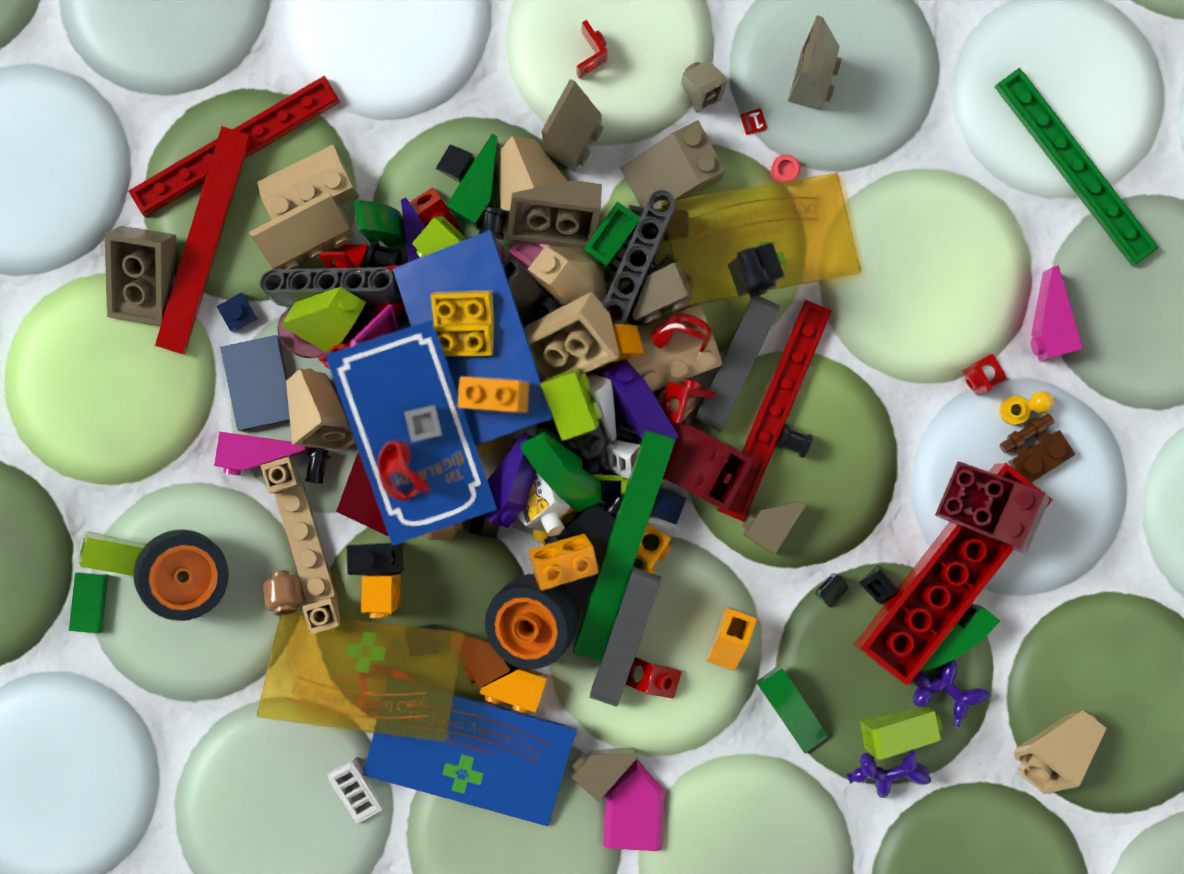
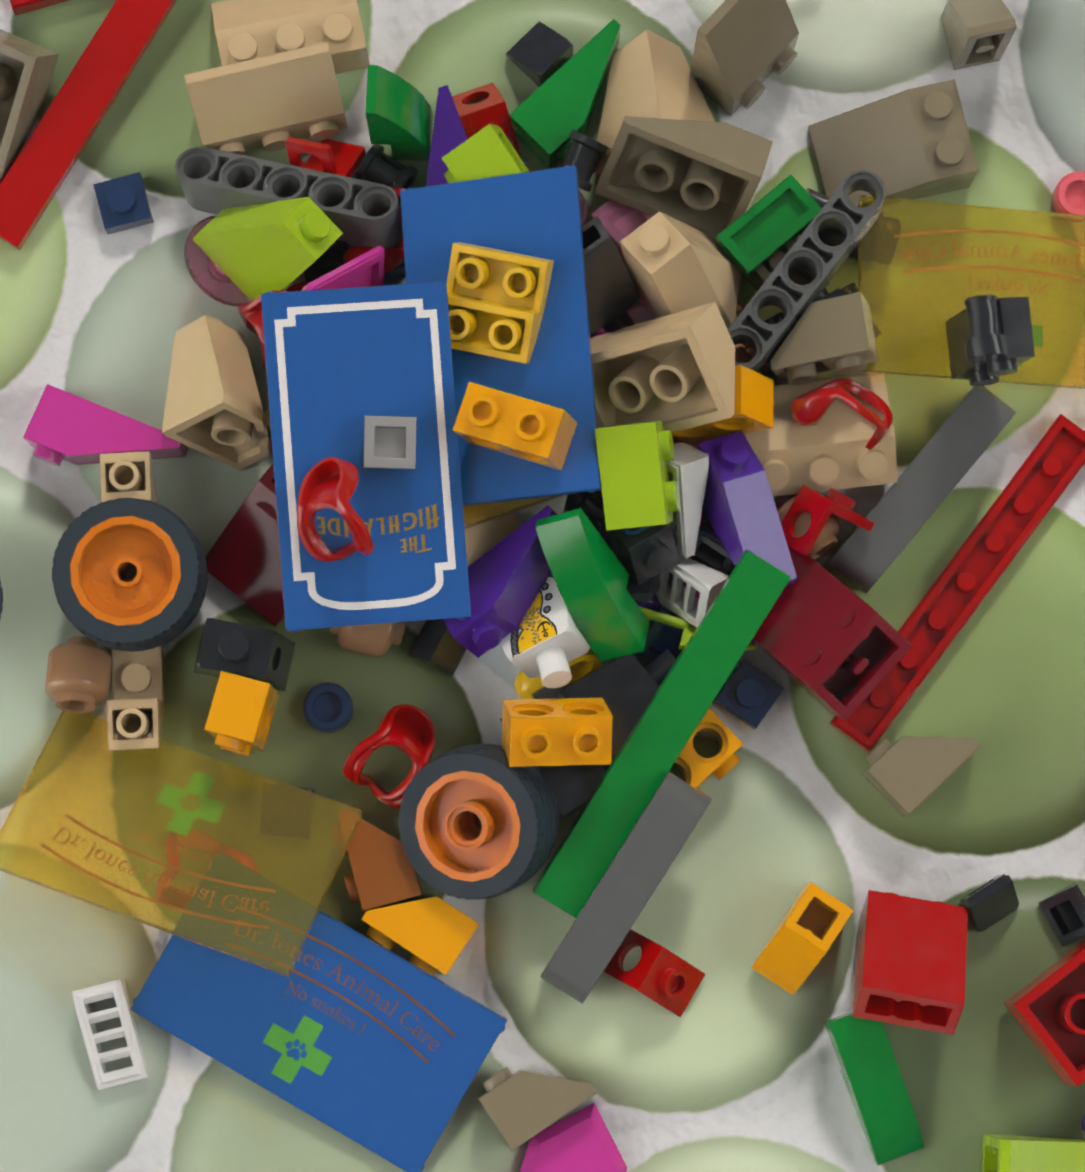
camera: 10 degrees right, 5 degrees down
(256, 382) = (126, 324): sand blue tile -> none
(272, 534) = (160, 597): none -> wheel
(316, 465) = (188, 480): black pin -> none
(430, 574) = (328, 707): none -> dark blue tile
(475, 577) = (401, 727): none -> red piece
(753, 121) = (1044, 107): red sticker -> none
(794, 441) = (986, 639): black bush -> none
(796, 638) = (911, 962): none -> red brick

